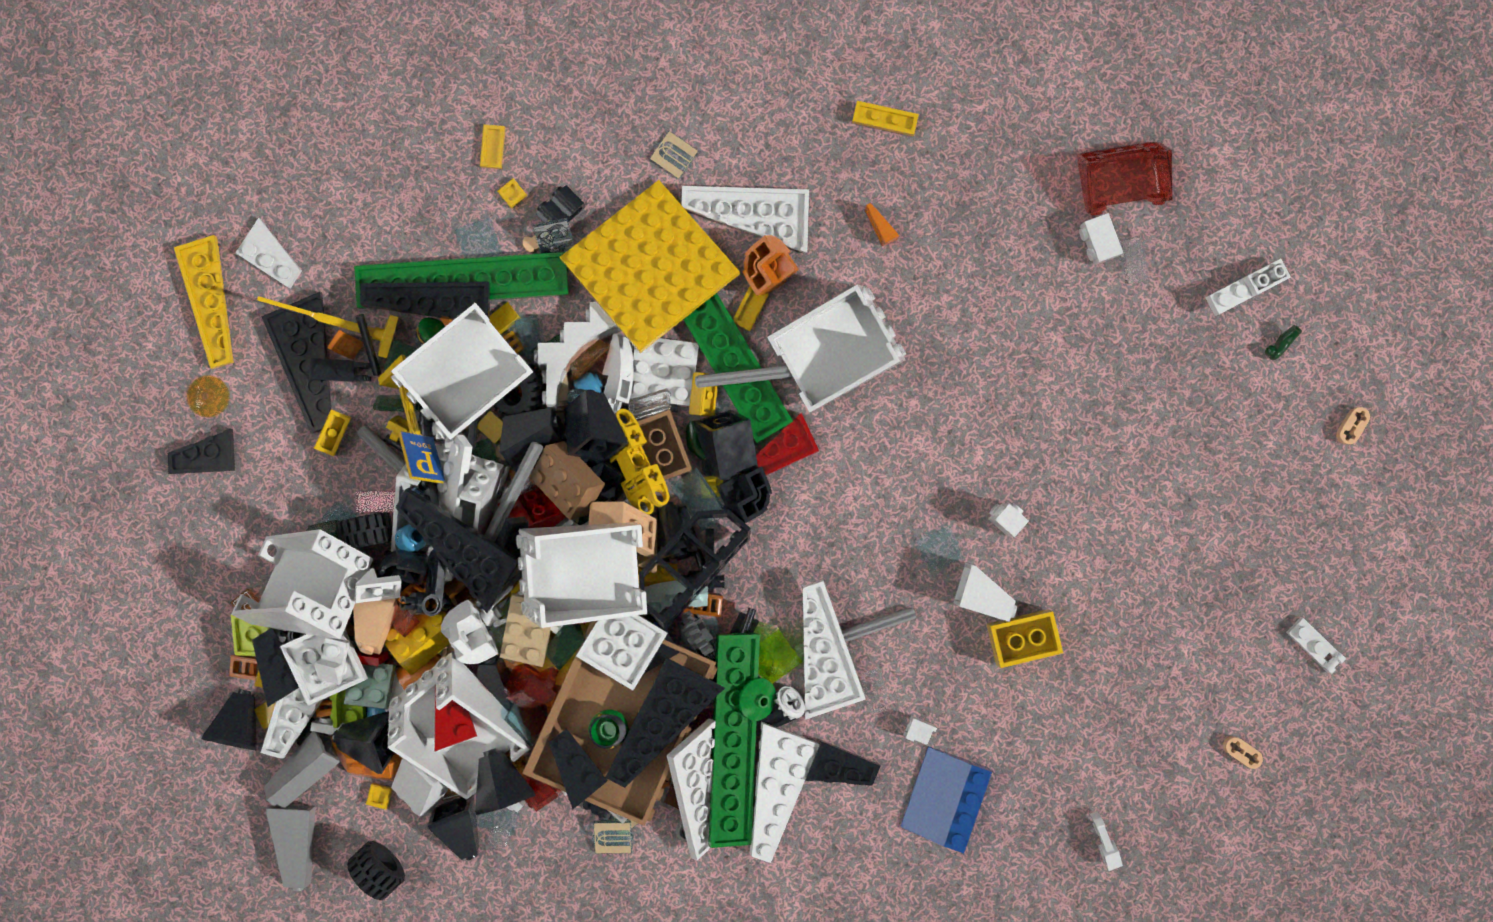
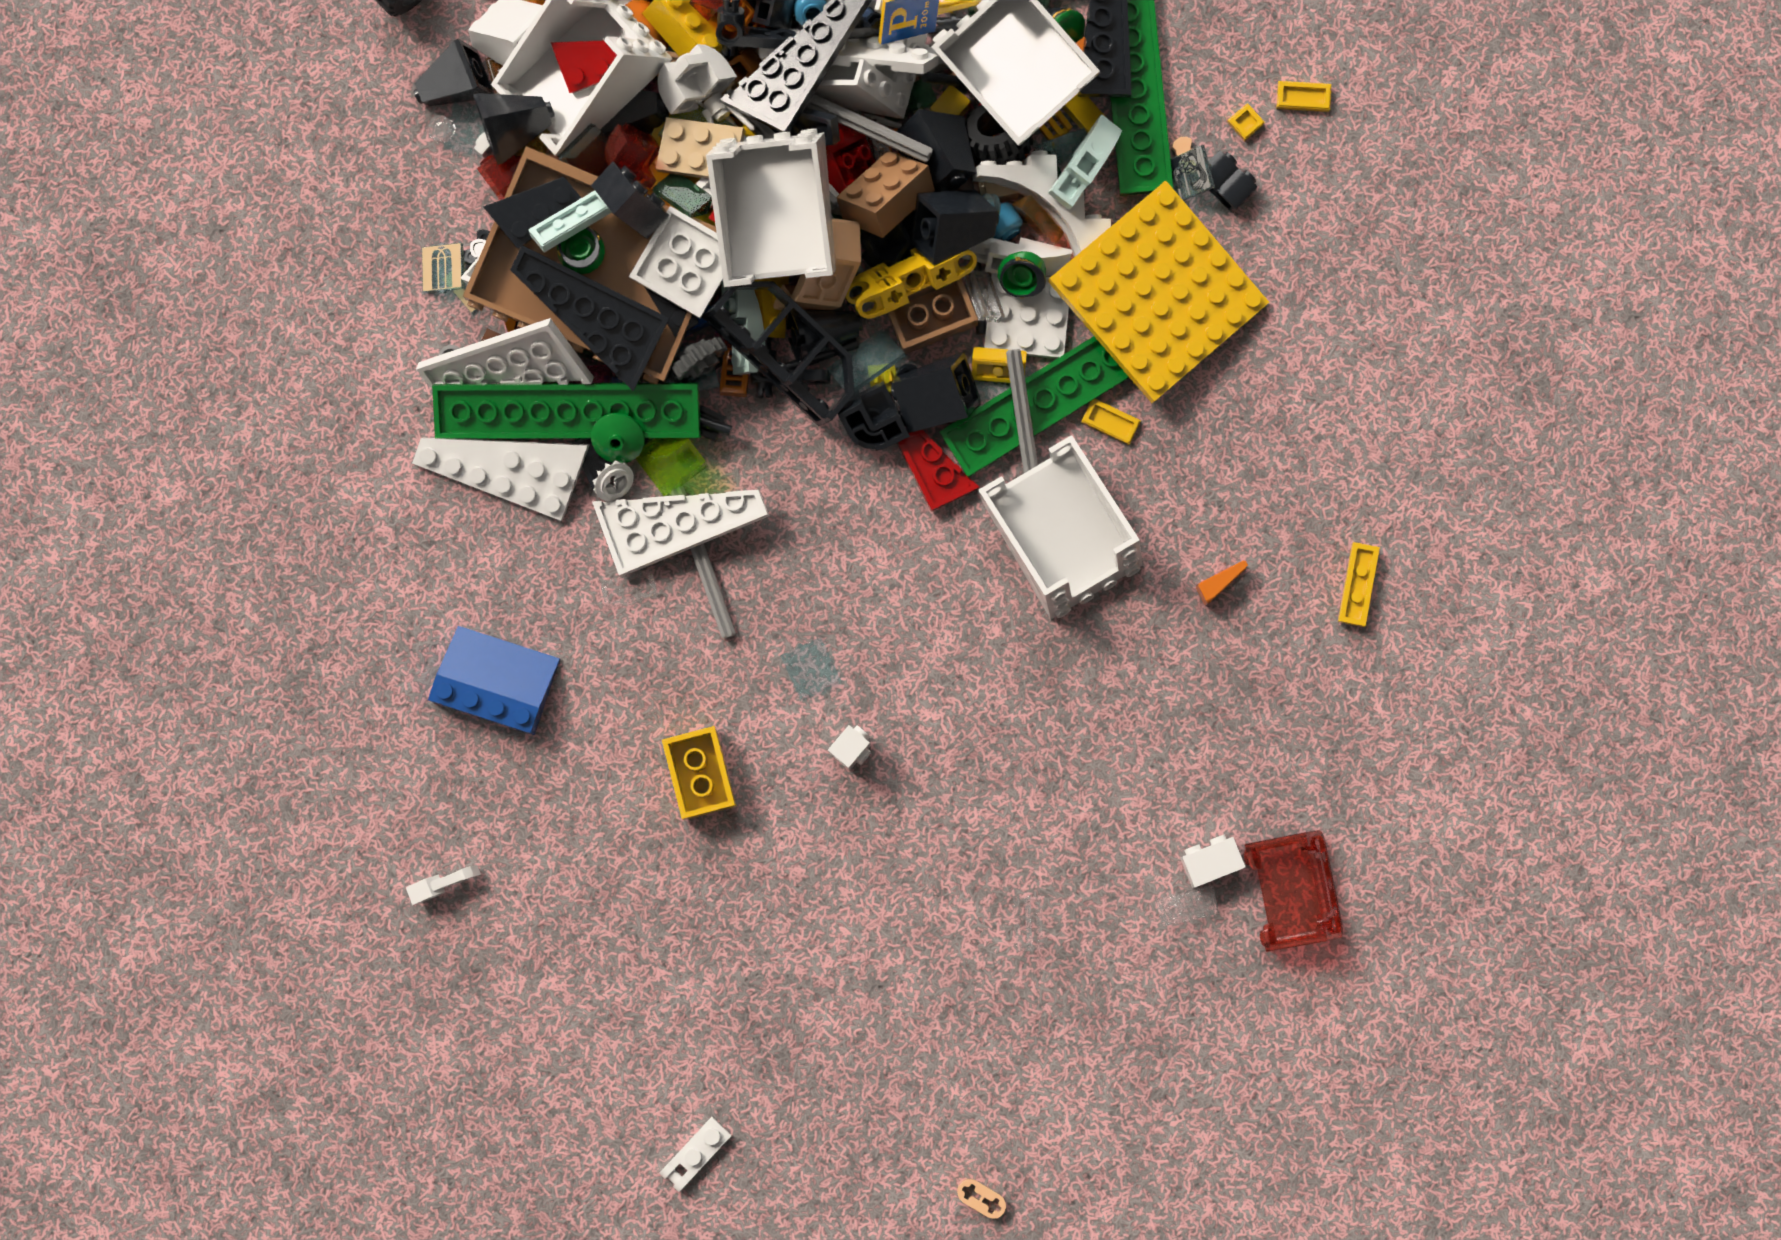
camera: 90 degrees right, 5 degrees down
(479, 240) = (1185, 83): clear light blue piece -> none
(544, 318) = (1085, 162): none -> light aqua slope
(571, 690) = (630, 199): none -> black brick
(586, 737) = (569, 221): none -> light aqua tile
(634, 372) = (1022, 274): none -> green piece
(674, 155) = (1301, 321): piece -> none
(693, 441) = (939, 352): dark green arm -> none
(754, 210) = (1232, 435): white wing -> none
(768, 265) = (1164, 439): orange brick -> none
(841, 766) = (534, 547): black wing -> none
(919, 730) = (580, 645): white panel -> none
(983, 595) = (752, 719): white slope -> none
(1240, 755) = (563, 1064): light nougat beam -> none
(1248, 287) = (1156, 1054): white slope -> none
(1283, 343) = (1086, 1104): dark green arm -> none

